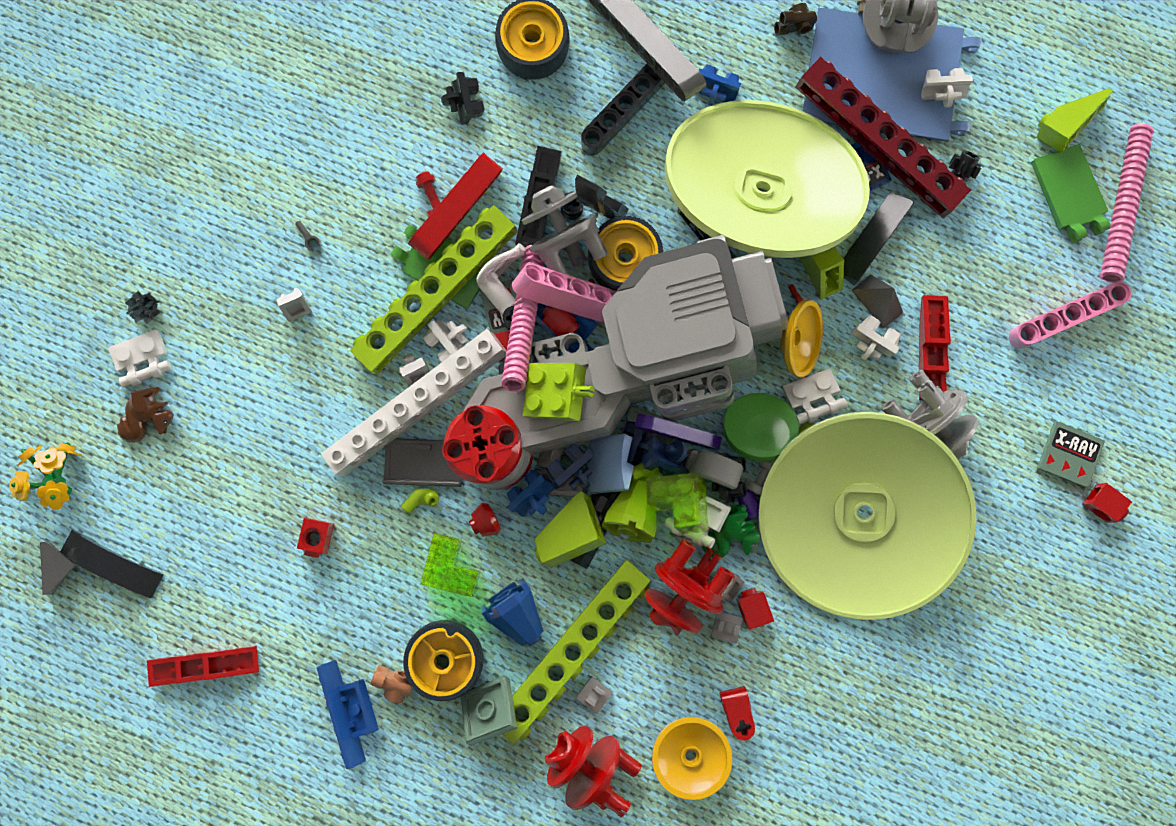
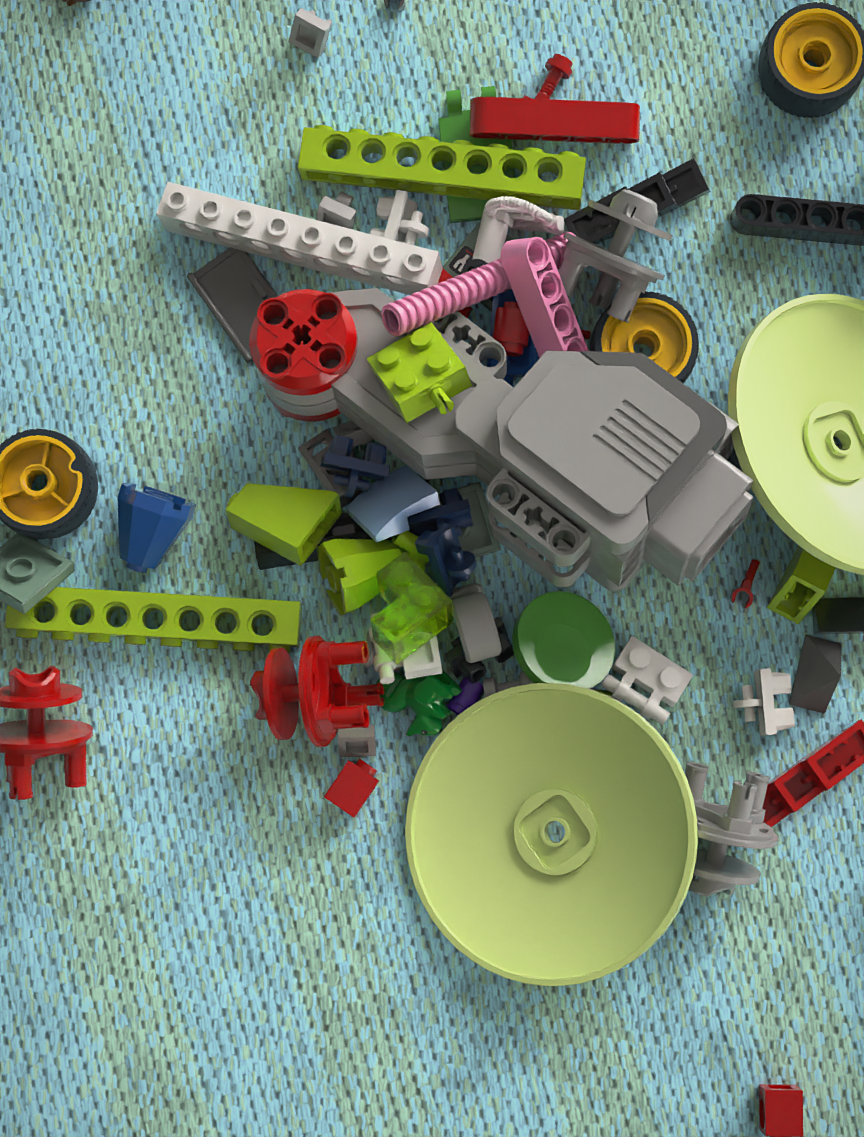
camera: 55 degrees right, 0 degrees up
(308, 527) = (74, 232): red brick -> none
(420, 497) = (202, 327): lime arm -> none
(443, 572) = (140, 407): clear neon green brick -> none
(459, 98) = (696, 28): black hips -> none
(484, 521) = (227, 416): red cone -> none
(533, 497) = (292, 447): blue hips -> none
(575, 212) = (649, 256): black bush -> none
(594, 694) = (126, 679): light grey tile -> none
(596, 199) = (680, 283): black slope -> none
(678, 431) = (485, 552): beam -> none
(697, 776) = (107, 840): yellow dish -> none
(727, 627) = (310, 772): light grey tile -> none
(738, 708) = (228, 848): red piece -> none
(802, 338) = (701, 614): yellow dish -> none
(1071, 454) = (807, 1029): sand green tile -> none

